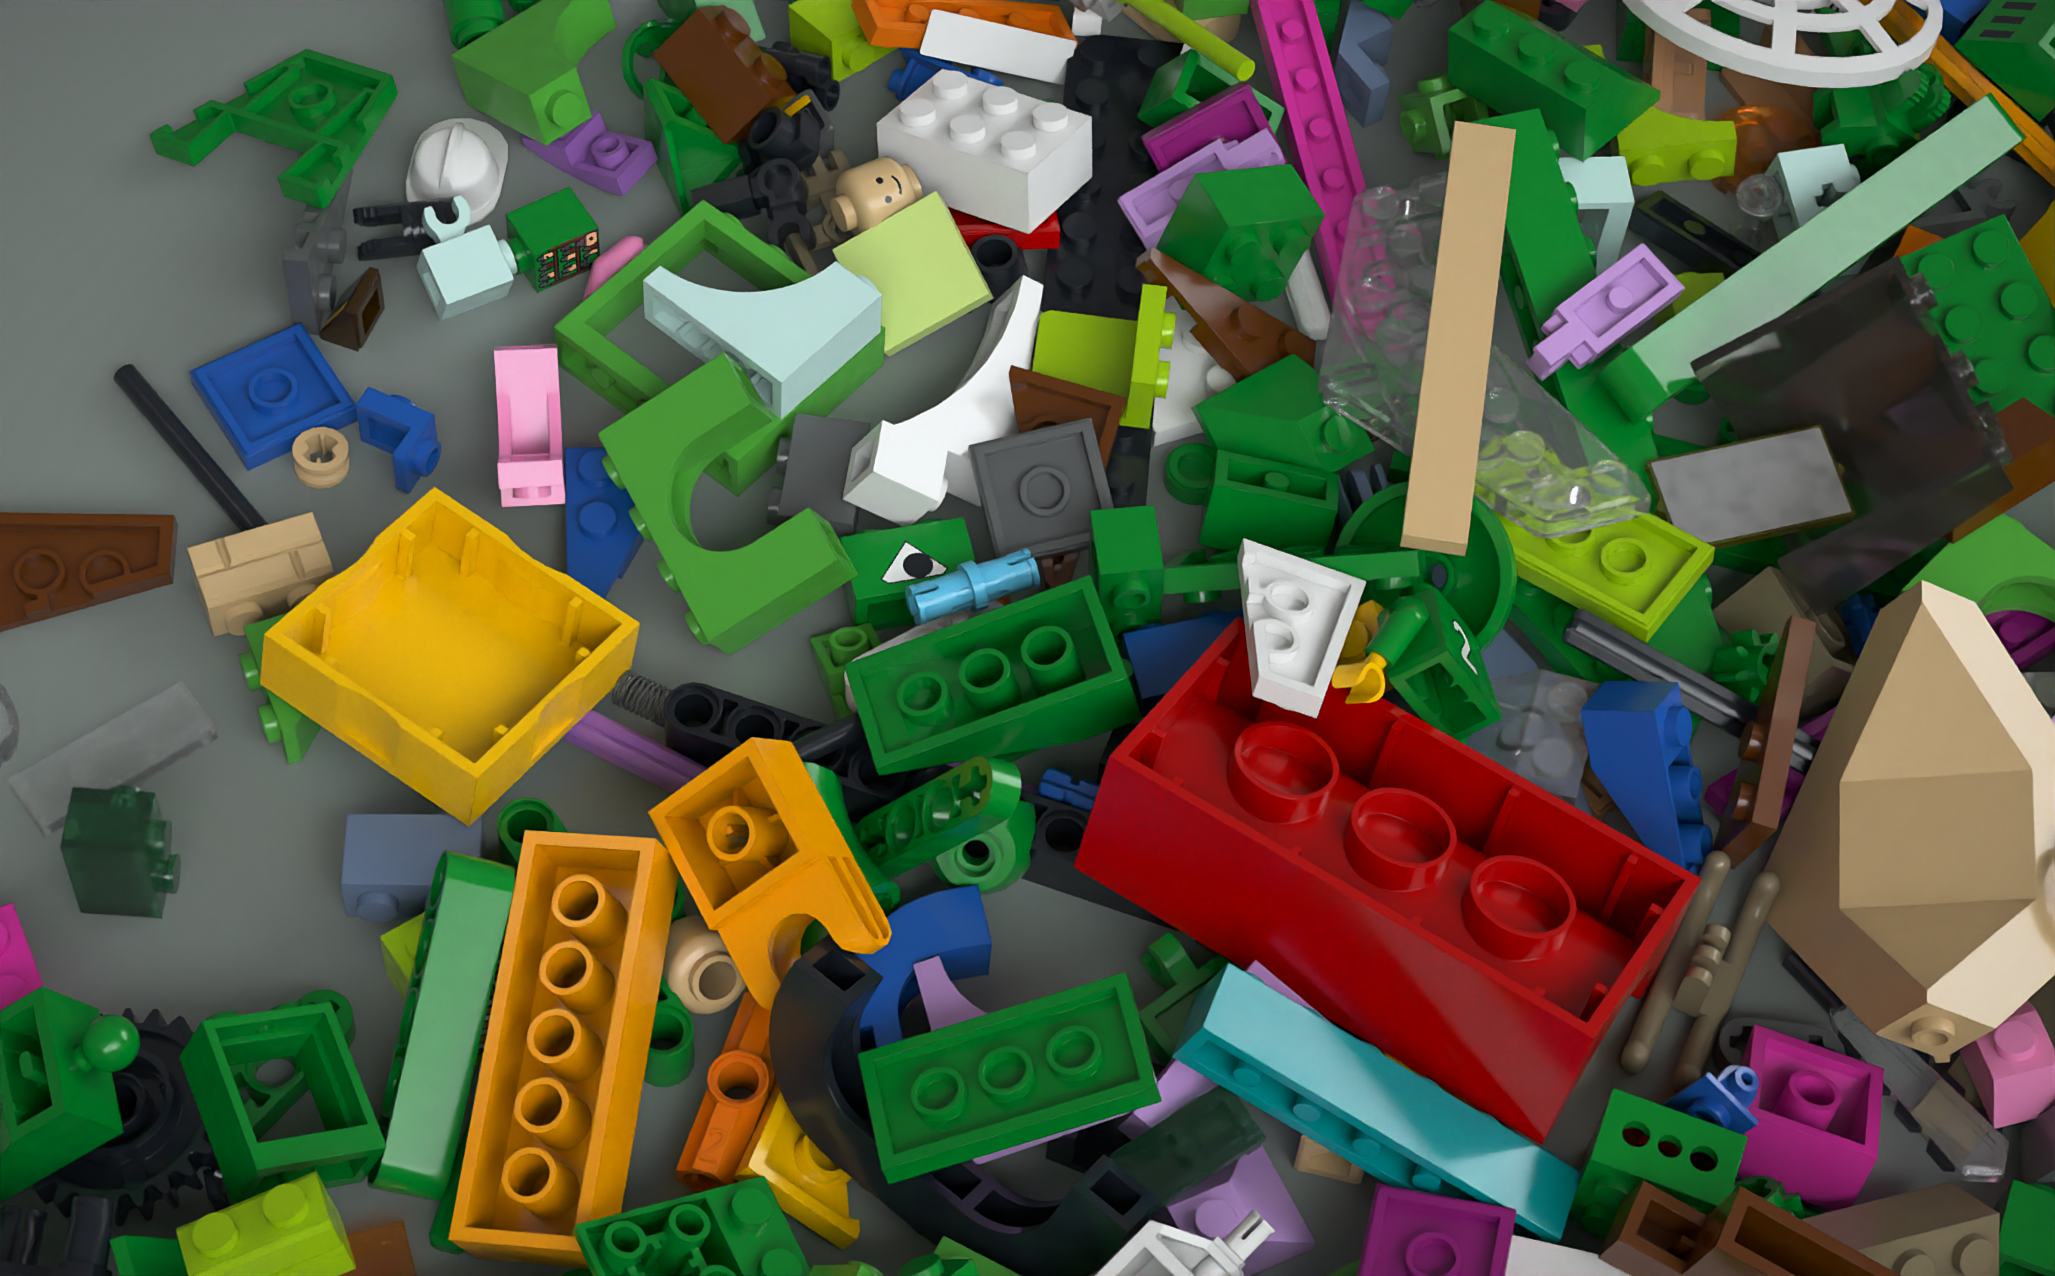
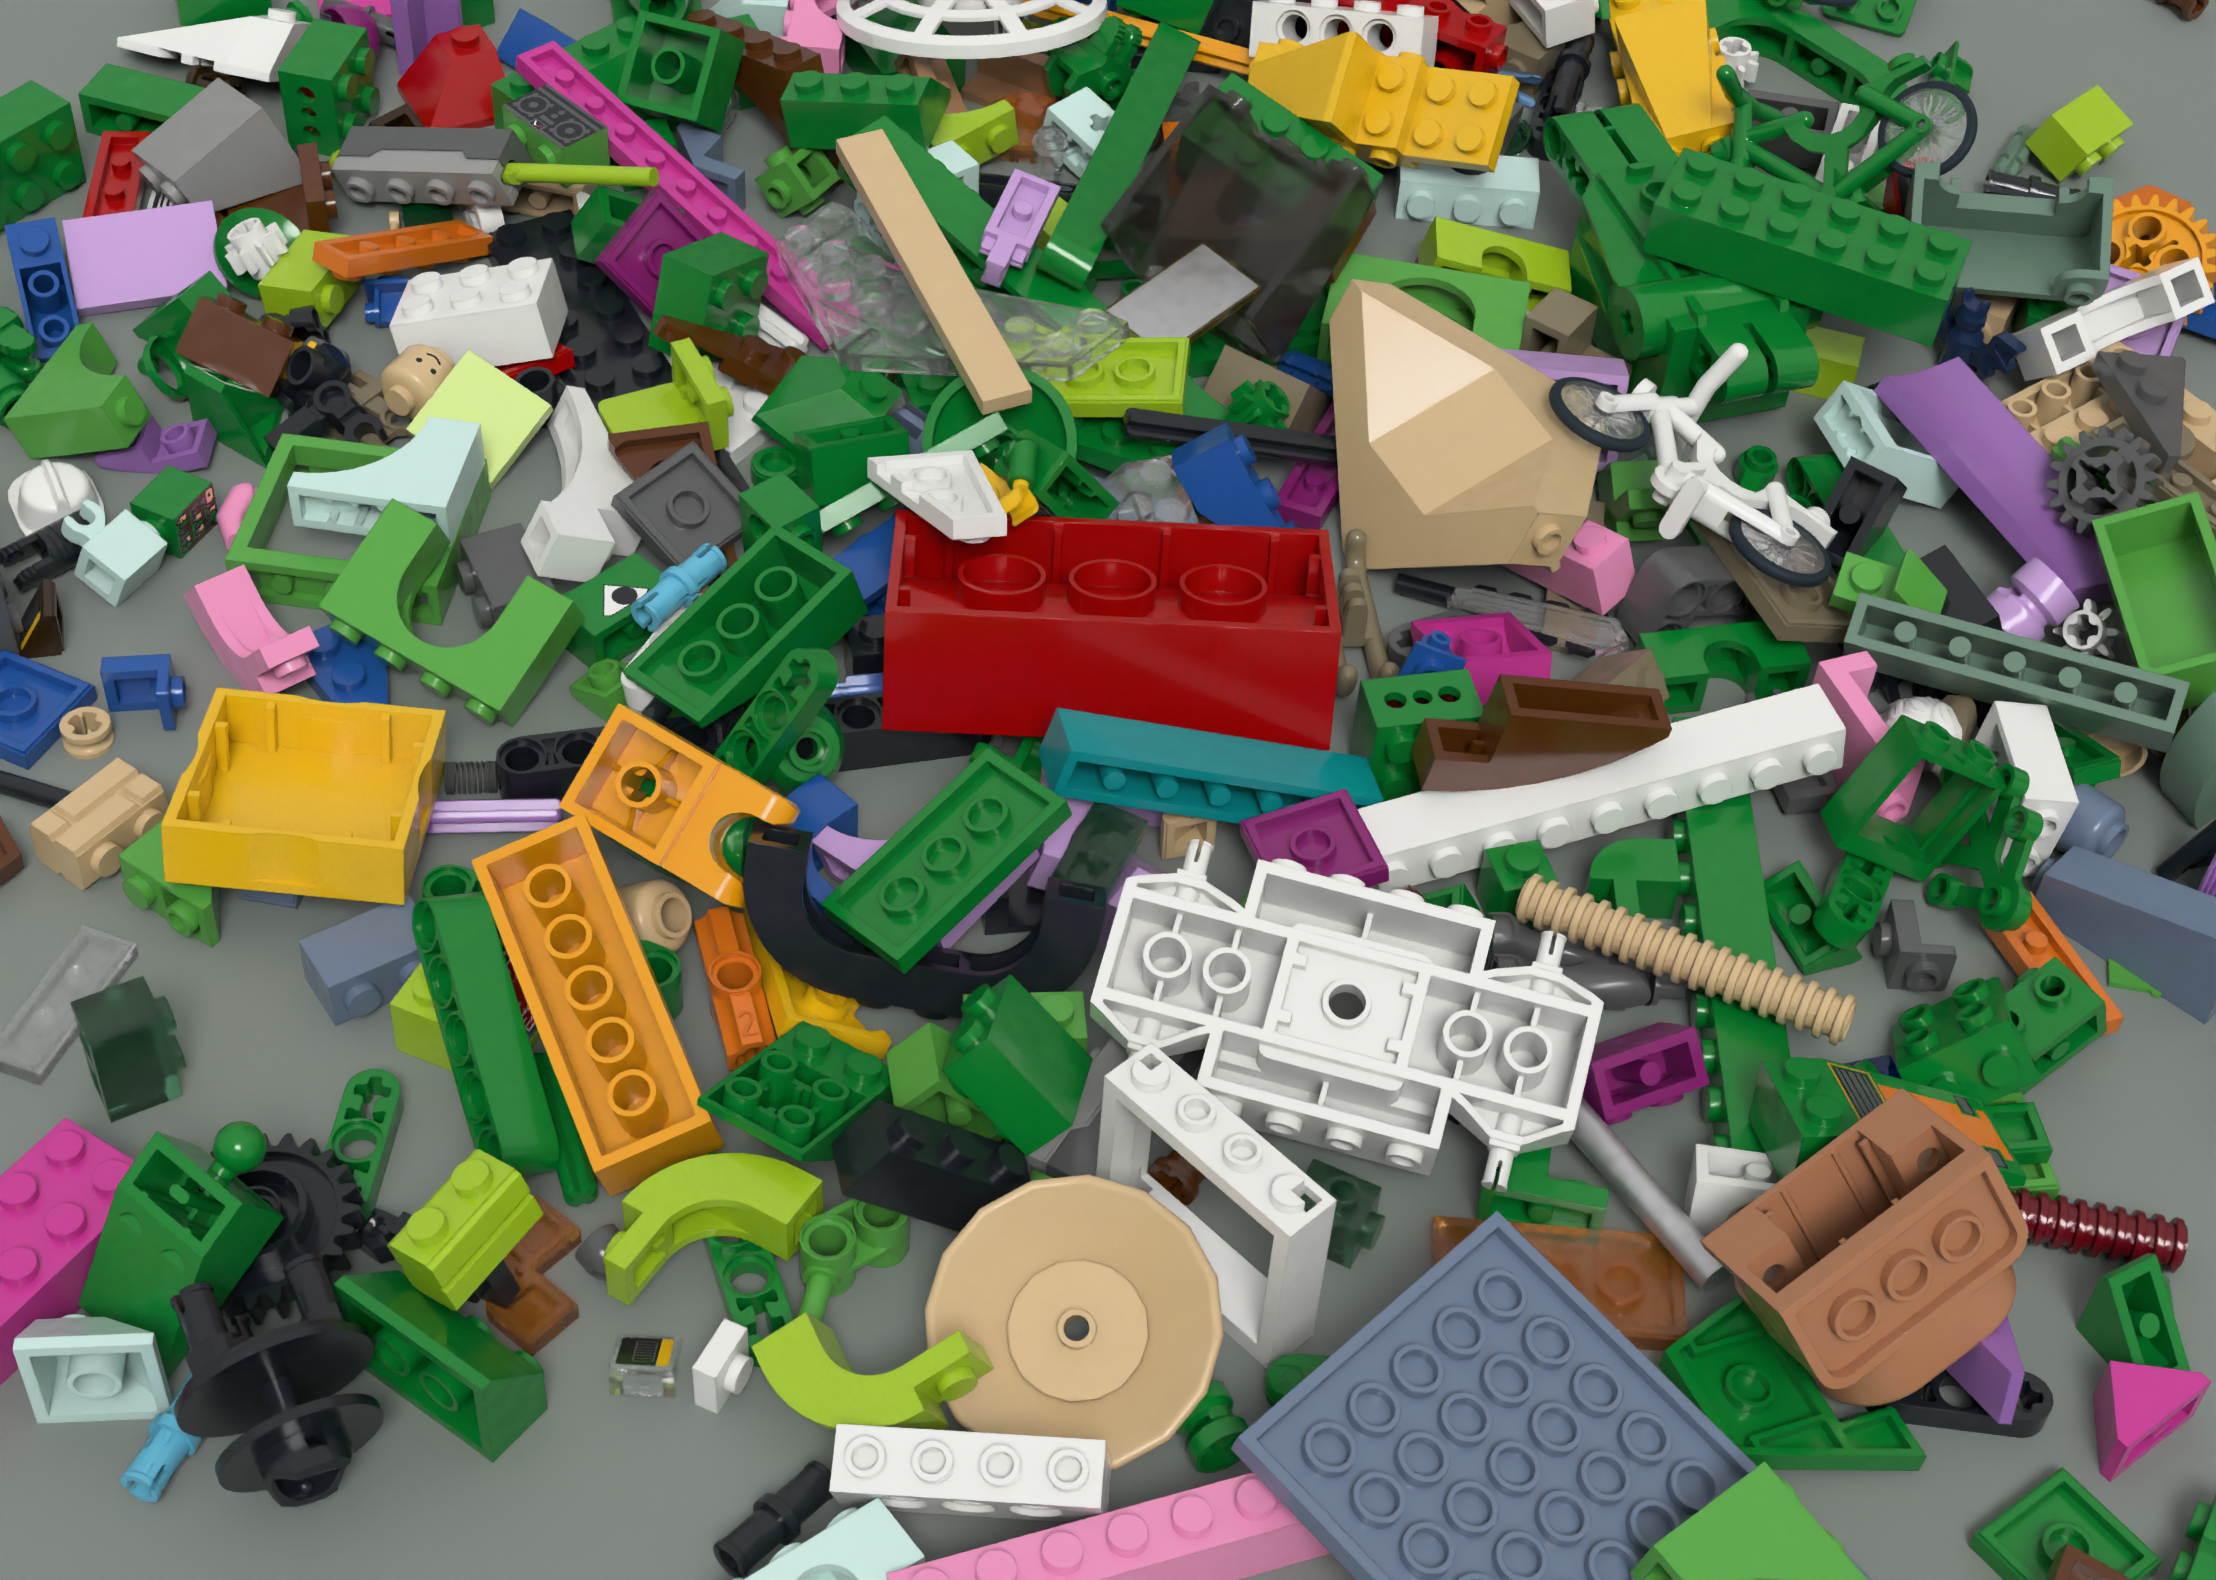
camera: 30 degrees left, 10 degrees down
(313, 1033) = (384, 1093): green window -> none
(997, 47) = (436, 252): white sticker -> none
(1154, 201) = (635, 299): lavender hinge -> none
(1767, 748) = (1314, 461): reddish brown wing -> none

